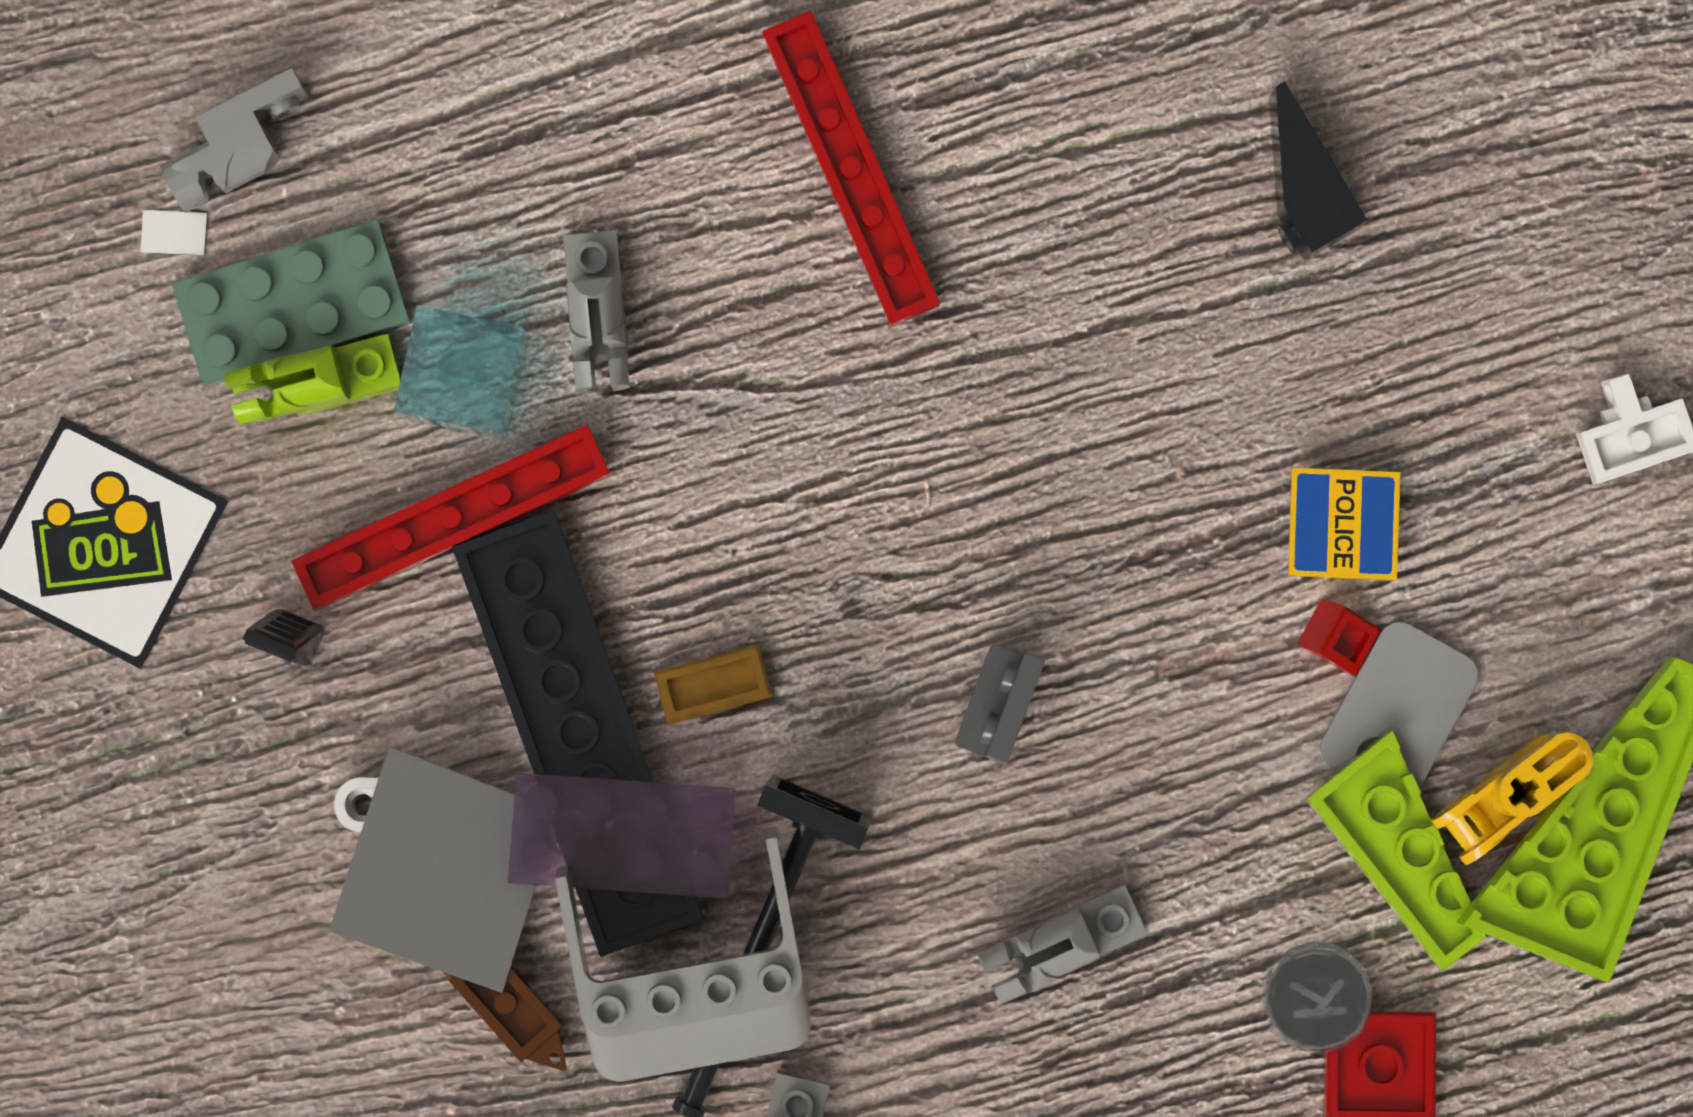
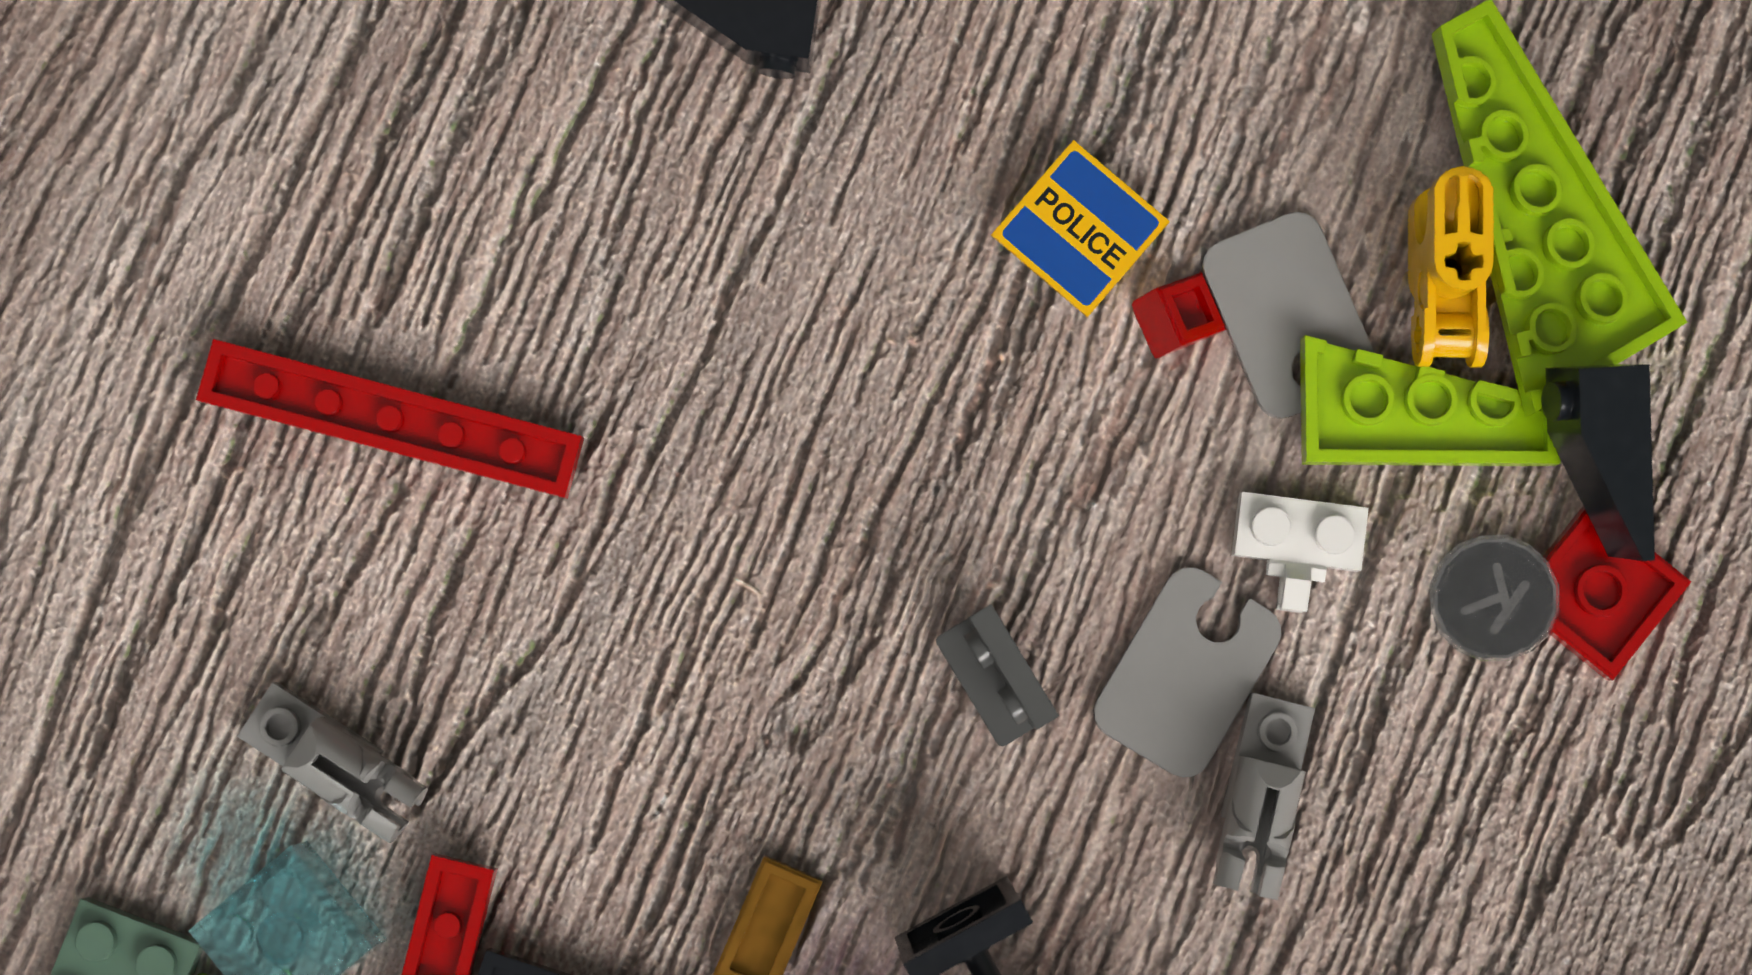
camera: 50 degrees left, 0 degrees up
(1088, 834) = (1174, 686): none -> light grey piece
(1251, 836) = (1299, 541): none -> white hinge
(1480, 984) = (1605, 442): none -> black slope

